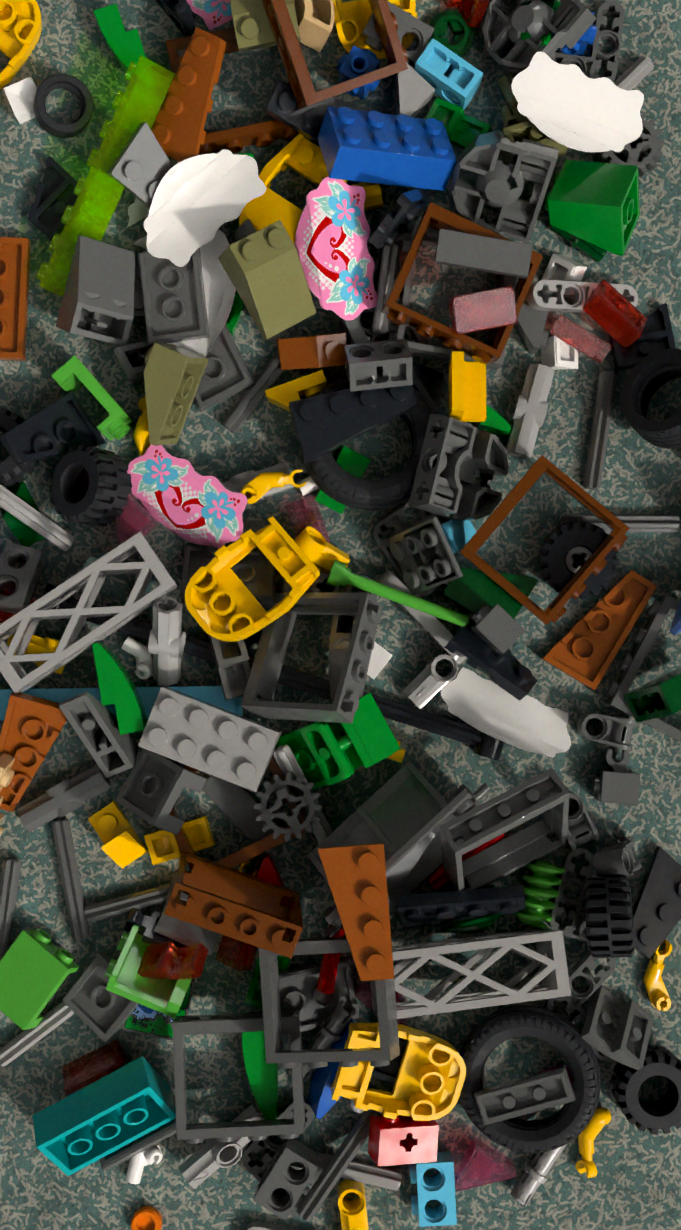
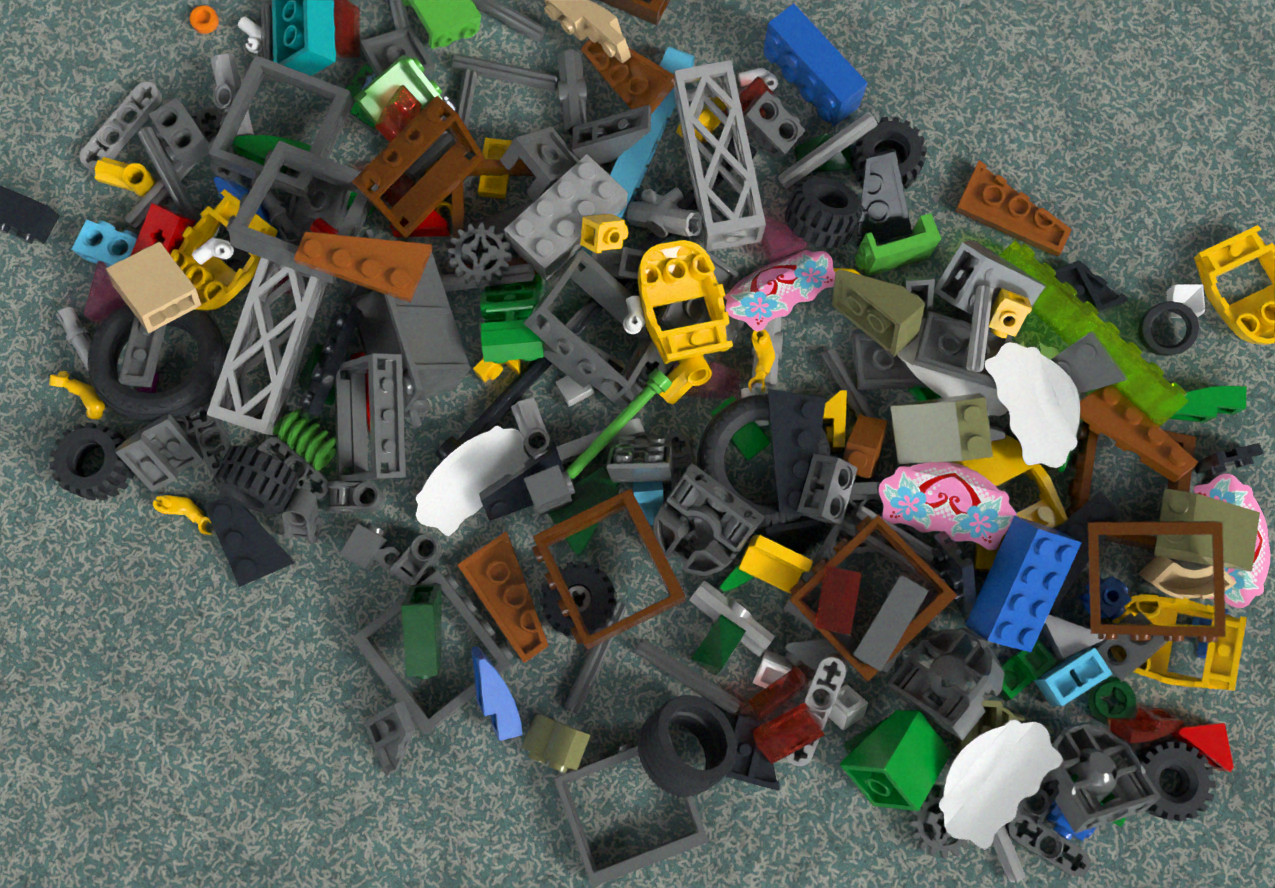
camera: 115 degrees right, 10 degrees down
(117, 834) = (518, 121): yellow slope -> none
(118, 689) = (642, 163): green slope -> none
(122, 261) = (1005, 305): none -> yellow brick
(150, 283) = (979, 328): none -> light grey axle
(211, 687) = (609, 232): none -> yellow brick
(288, 622) = (635, 319): none -> white arm
(398, 1076) = (213, 247): none -> white arm
(466, 1116) = (154, 287): none -> tan brick
(562, 410) = (718, 645): none -> dark green slope

